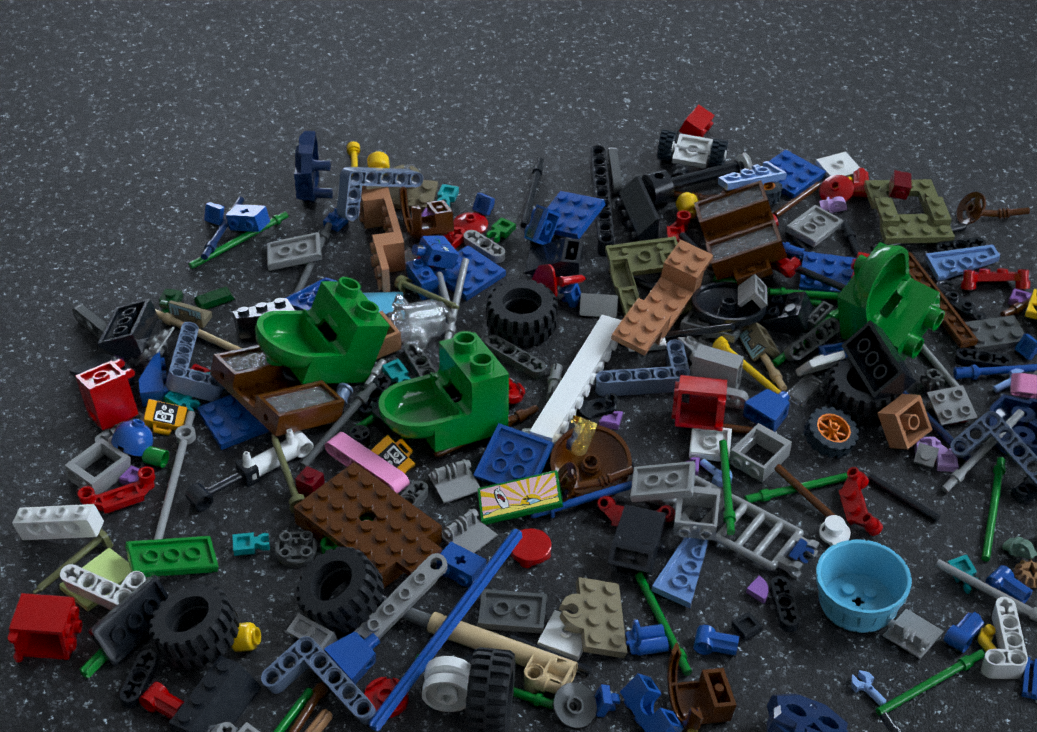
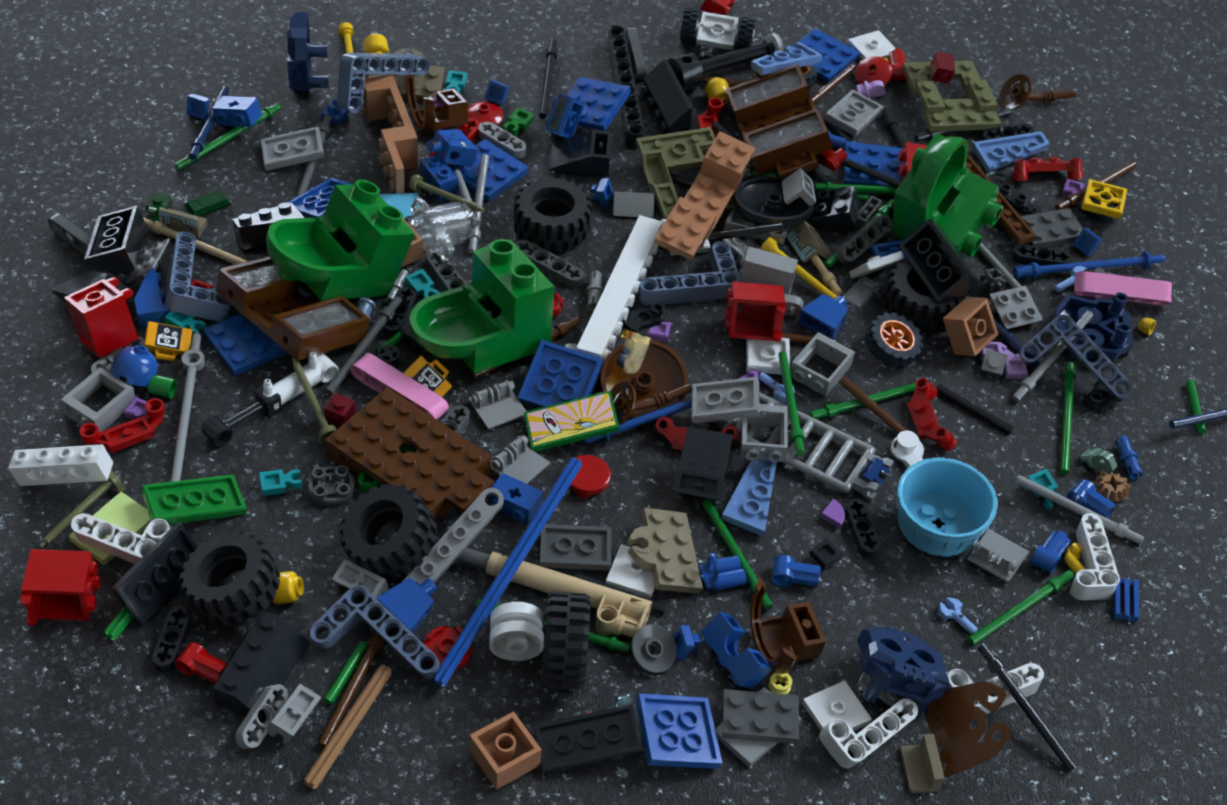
camera: 10 degrees left, 5 degrees up
(546, 275) = (576, 172): red piece -> none

